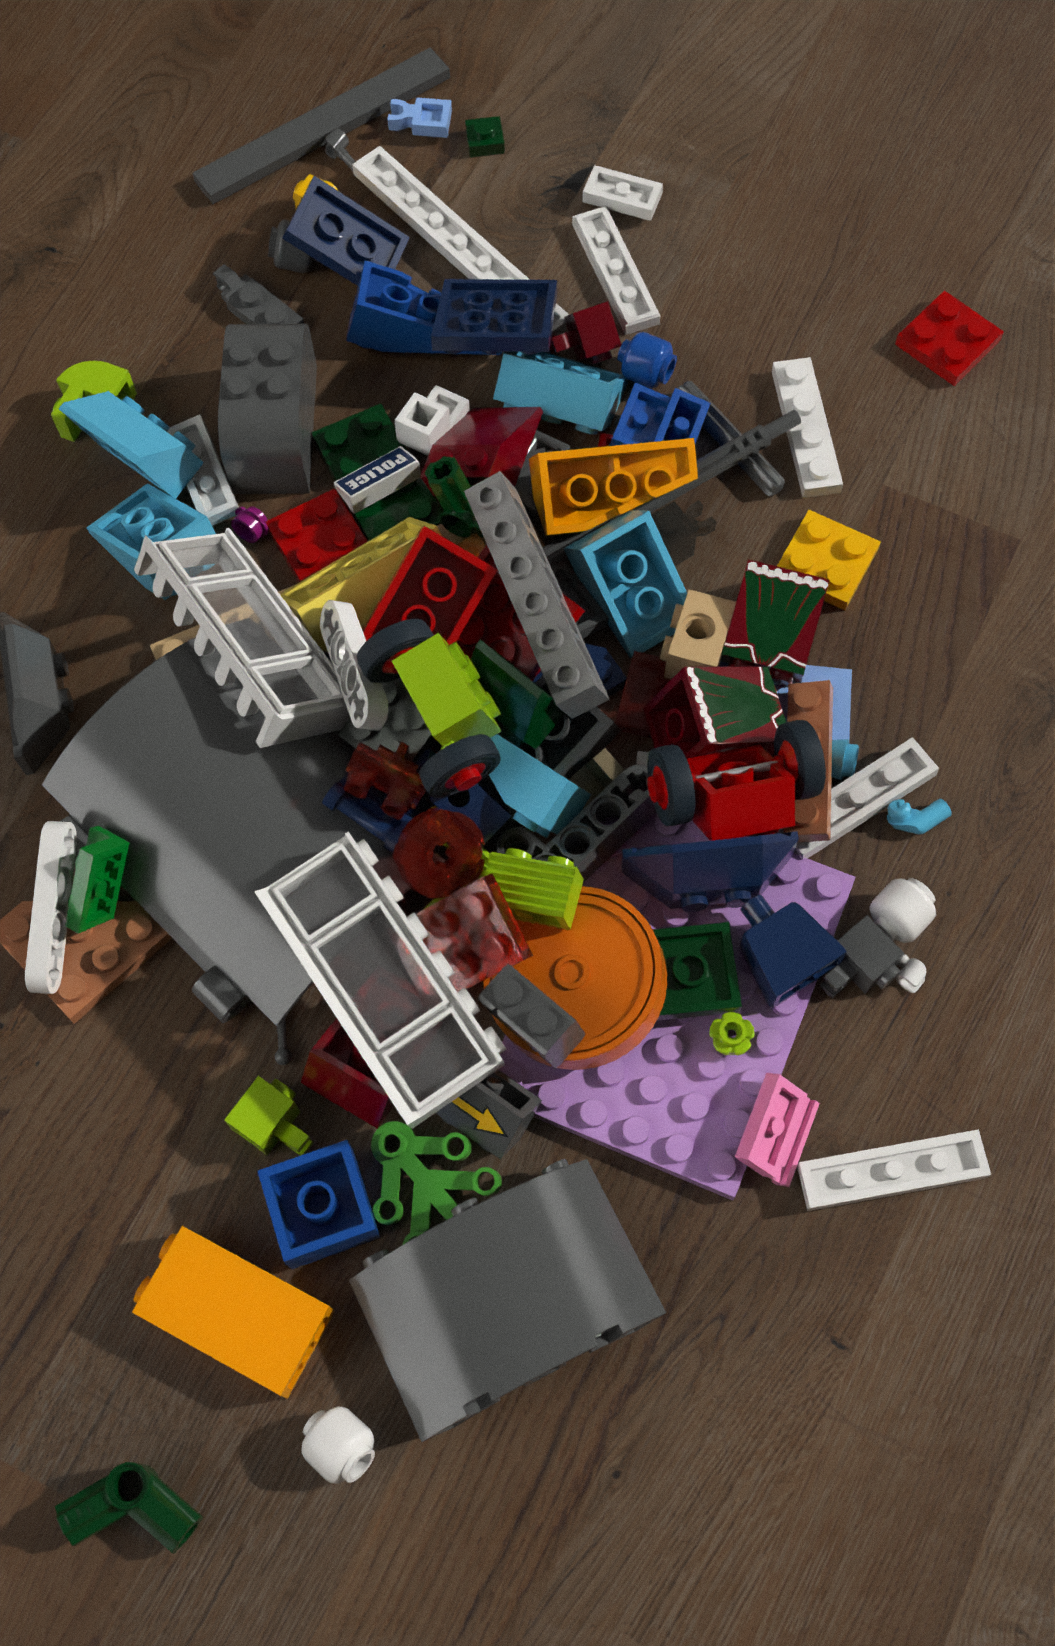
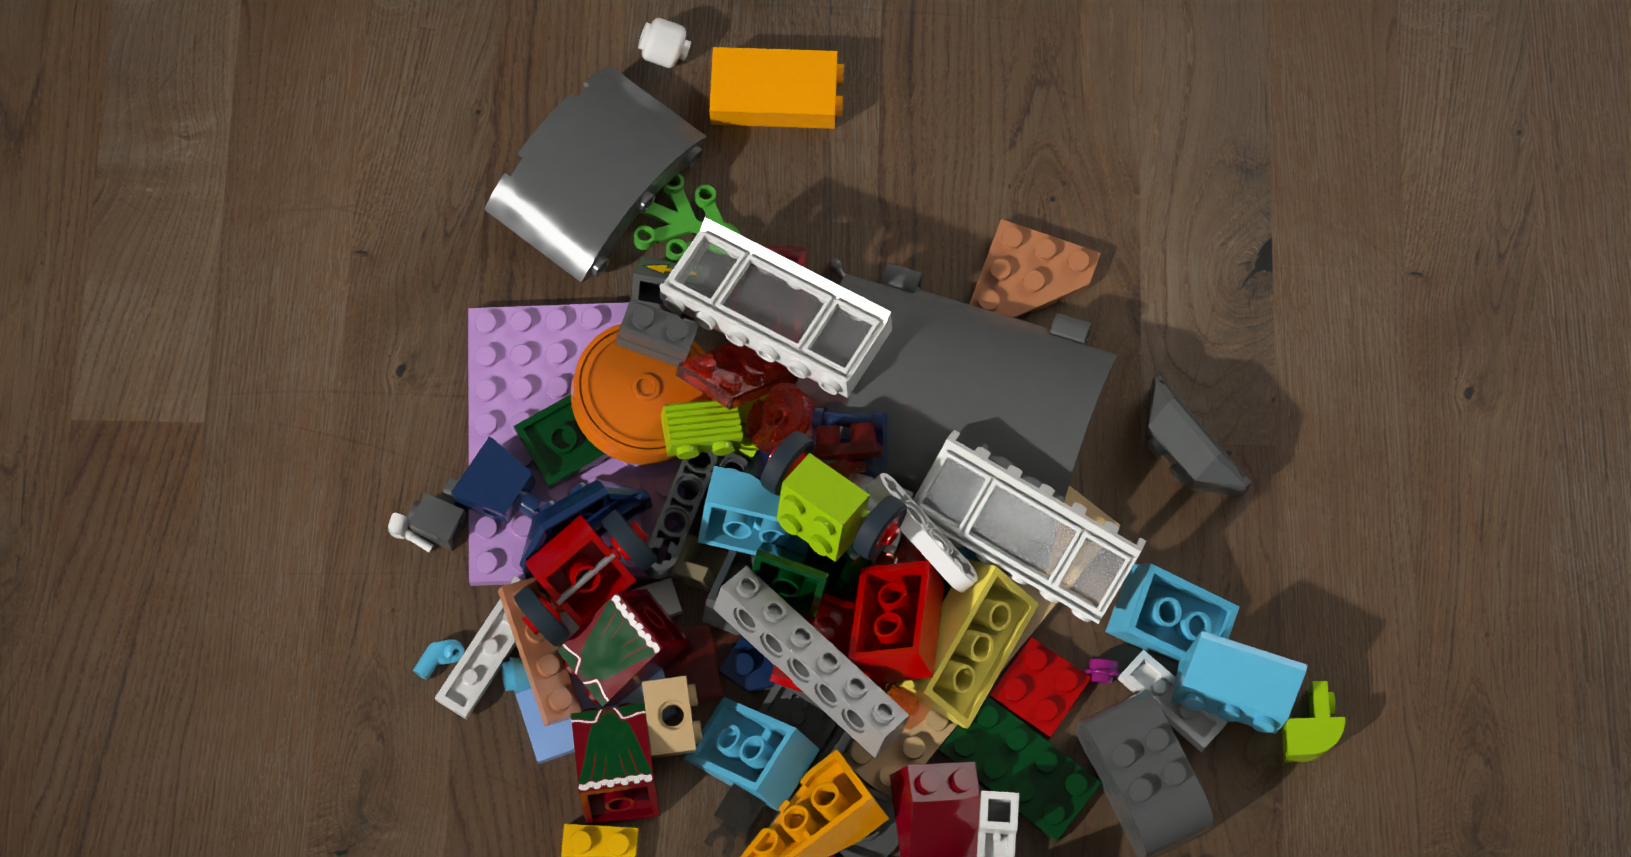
camera: 155 degrees right, 5 degrees up
(50, 907) = (1052, 271): white beam -> none
(96, 880) = (1030, 306): green bracket -> none
(267, 1116) = (820, 214): lime brick -> none
(318, 1204) = (751, 171): blue brick -> none
(378, 479) = (1014, 751): white slope -> none
(449, 486) = (918, 746): dark green piece -> none
(731, 1046) = (516, 399): lime plate -> none
(777, 1129) = (455, 362): bright pink plate -> none
(893, 1170) = (363, 375): white plate -> none
(903, 909) = (422, 565): white head -> none

